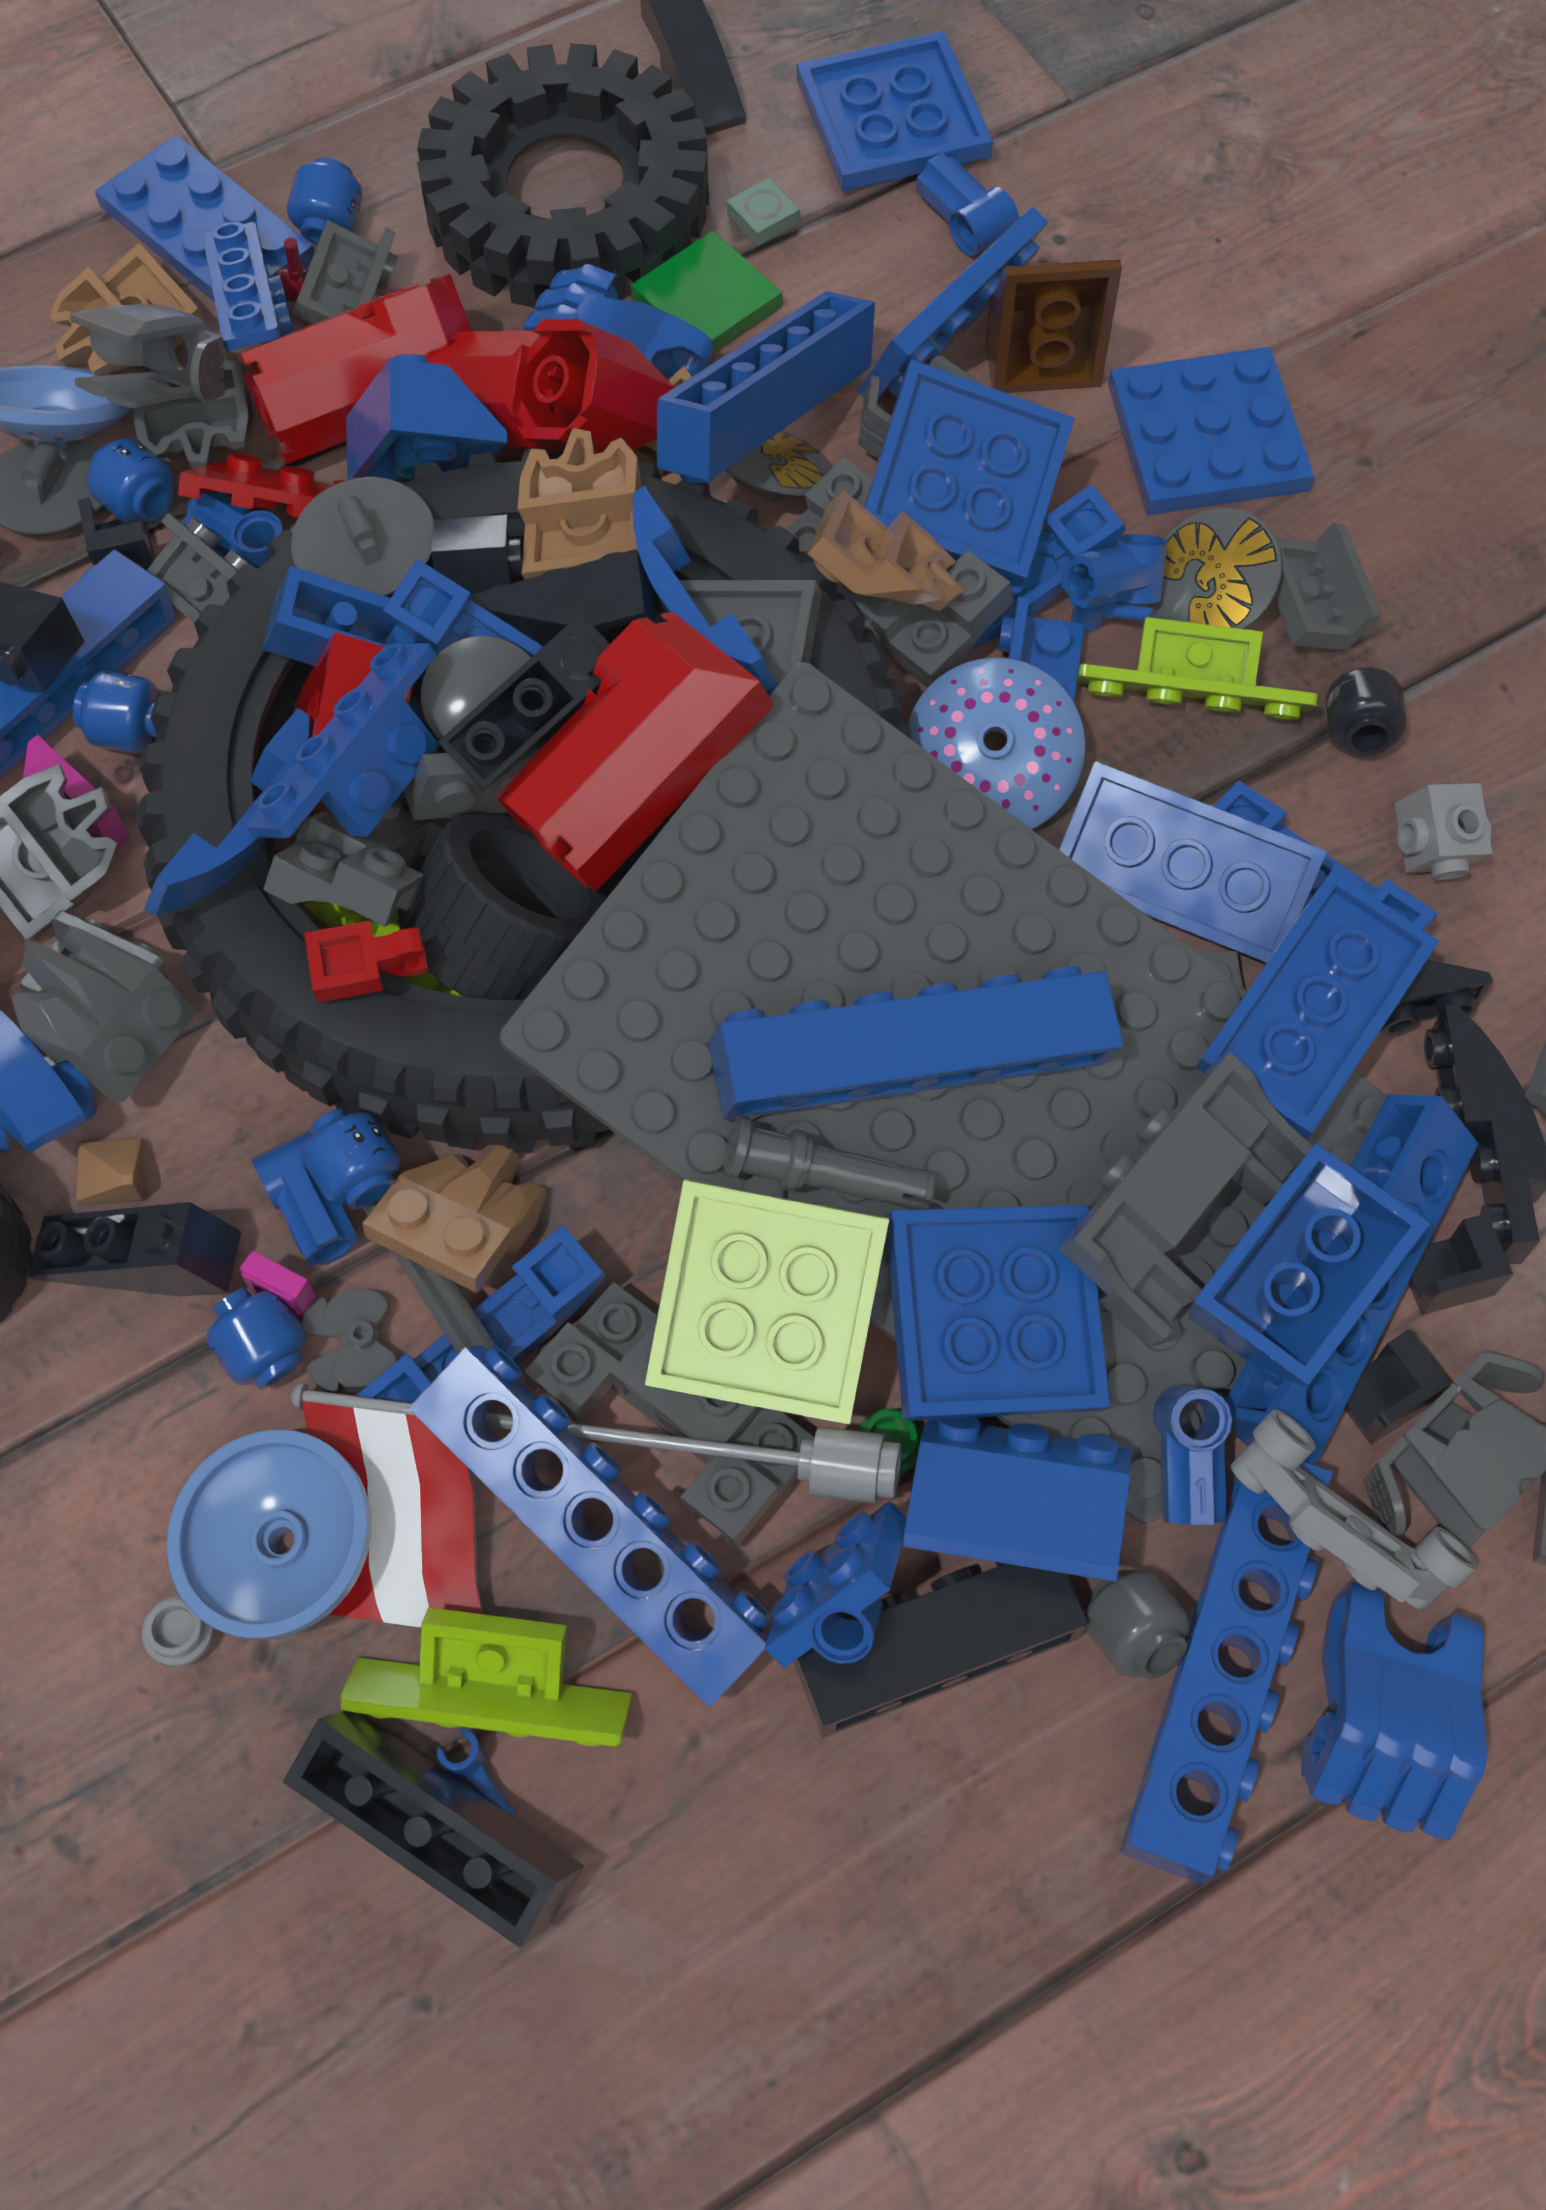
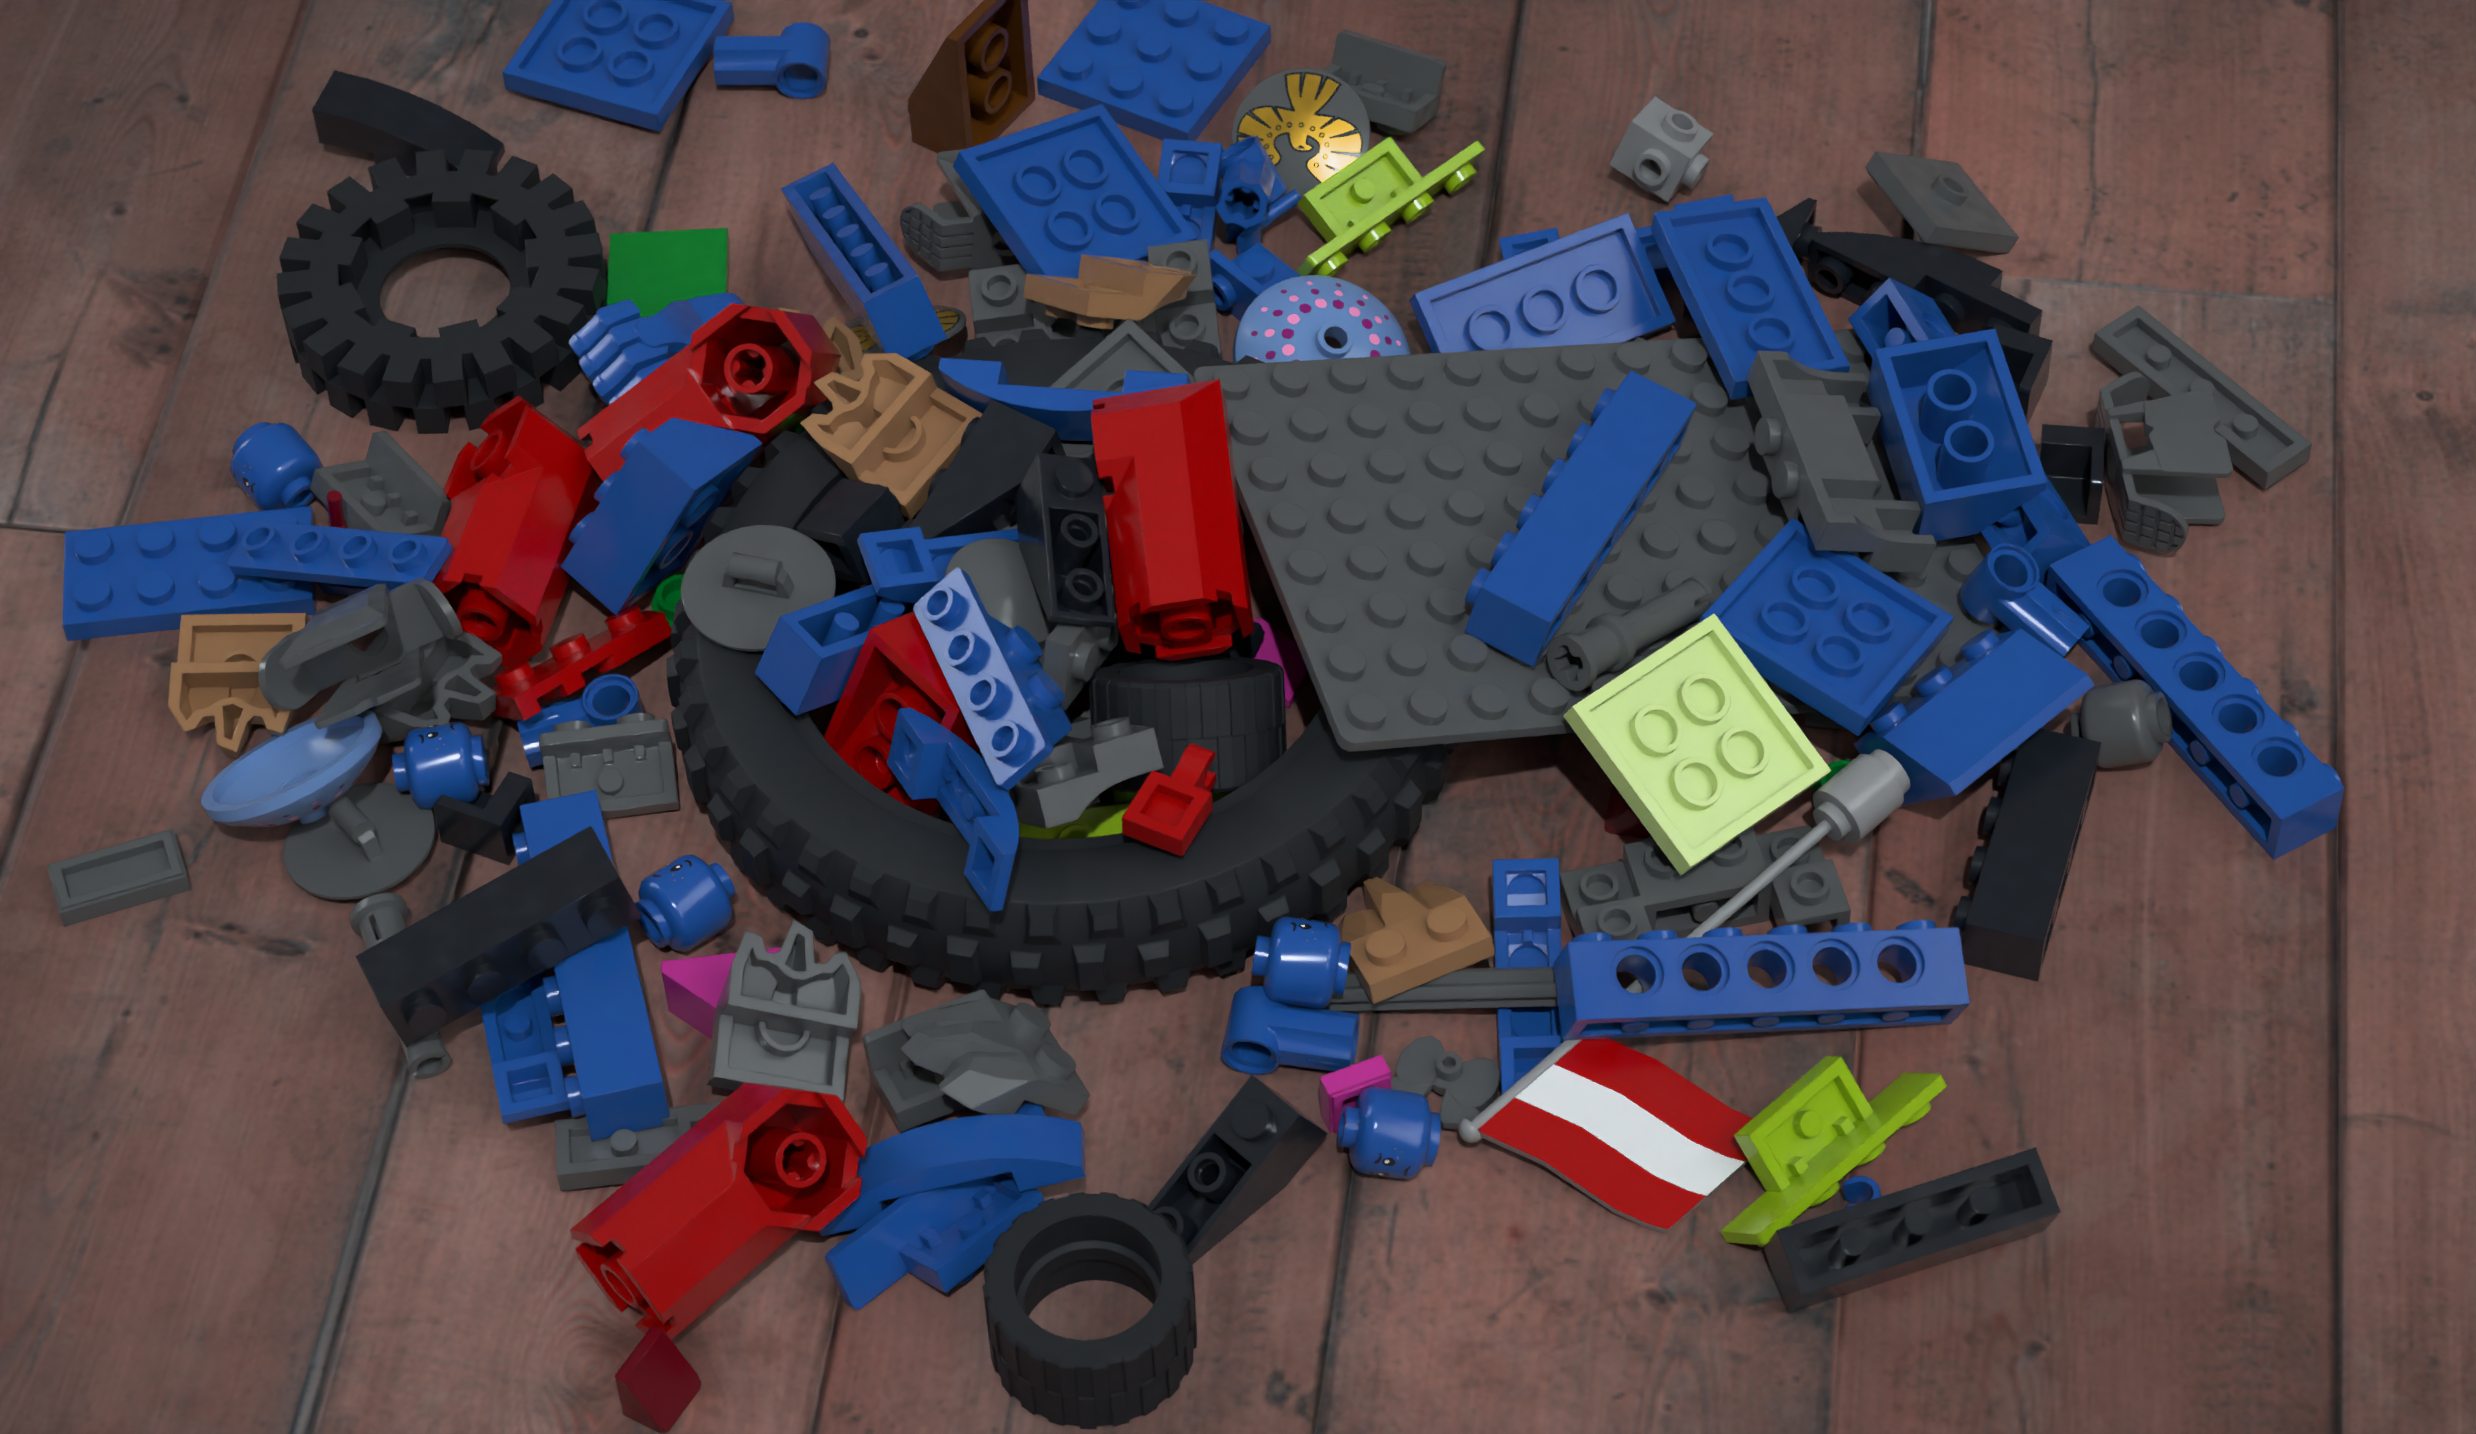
camera: 50 degrees left, 15 degrees down
(110, 1171) = (1129, 1162): medium nougat slope -> none
(175, 1634) = (1595, 1332): light grey plate -> none
(230, 1529) = (1574, 1166): medium blue dish -> none
(763, 211) = (622, 192): sand green tile -> none
(841, 1578) = (1941, 852): blue plate -> none
(957, 305) = (886, 119): blue plate -> none
(1330, 1522) = (2216, 547): light grey plate -> none
(1365, 711) = (1514, 130): black head -> none
(1401, 1723) = (2313, 618): blue piece -> none

